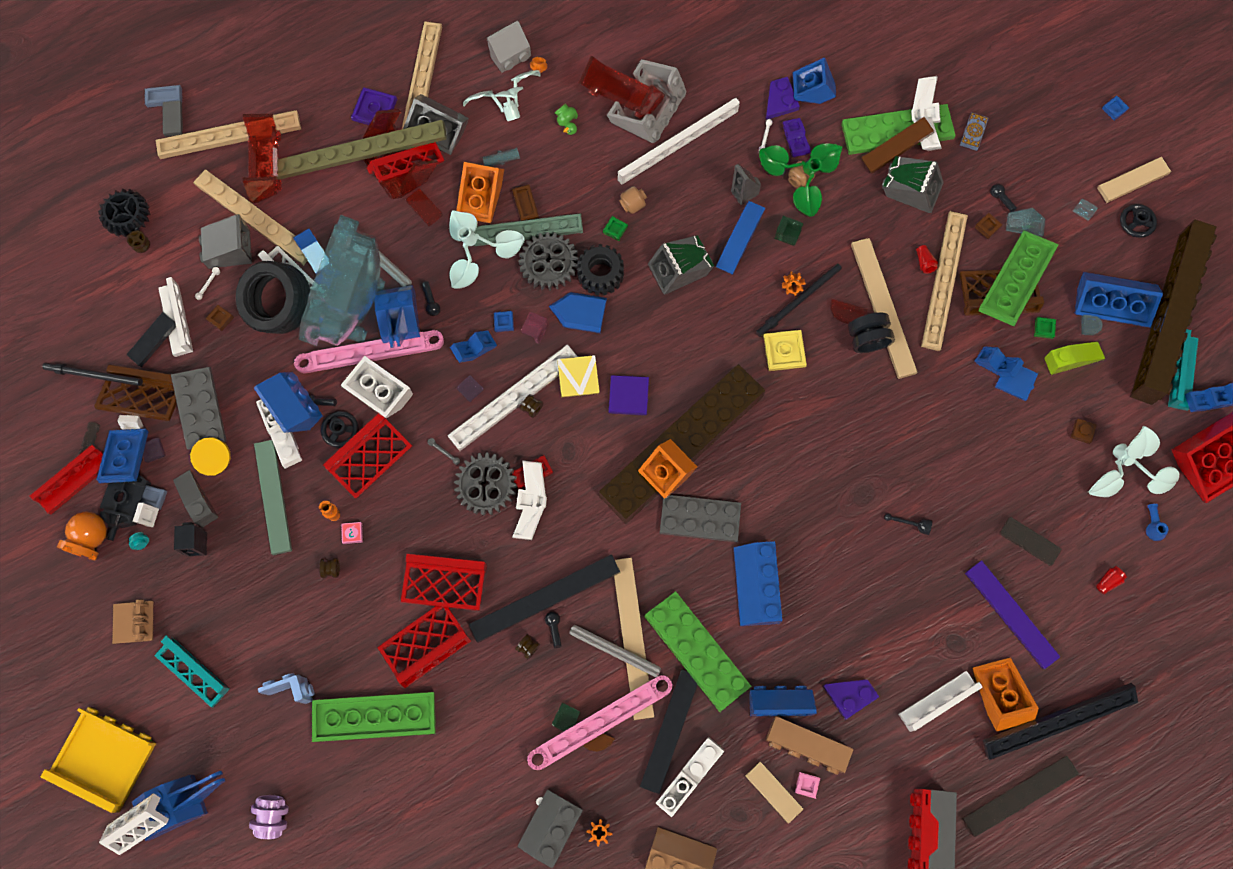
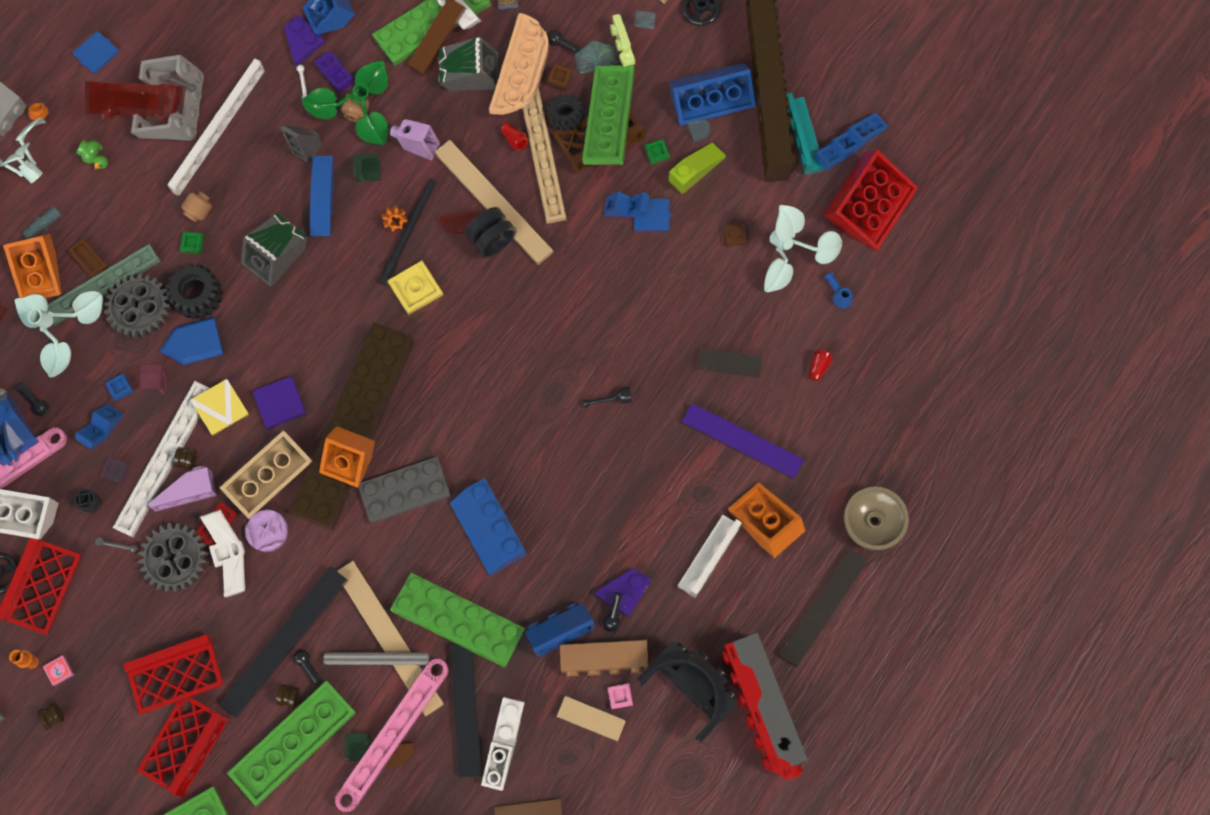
camera: 25 degrees left, 0 degrees up
(439, 407) = (90, 504): none -> black wheel
(513, 687) = (291, 743): none -> bright green plate
(523, 432) = (188, 488): none -> lavender slope
(570, 497) = (266, 530): none -> lavender tile
(592, 451) = (266, 474): none -> tan slope
(606, 36) = (95, 52): none -> blue piece
(828, 717) = (612, 622): none -> black bar
(842, 224) = (416, 138): none -> lavender torso
(882, 808) = (696, 680): none -> black piece
(959, 203) = (521, 67): none -> light nougat plate
(975, 266) = (563, 103): none -> black tyre
(1057, 220) = (622, 41): none -> yellowish green hinge
(1060, 721) = (826, 522): black tile -> none
(1117, 739) = (885, 508): none -> dark tan dish

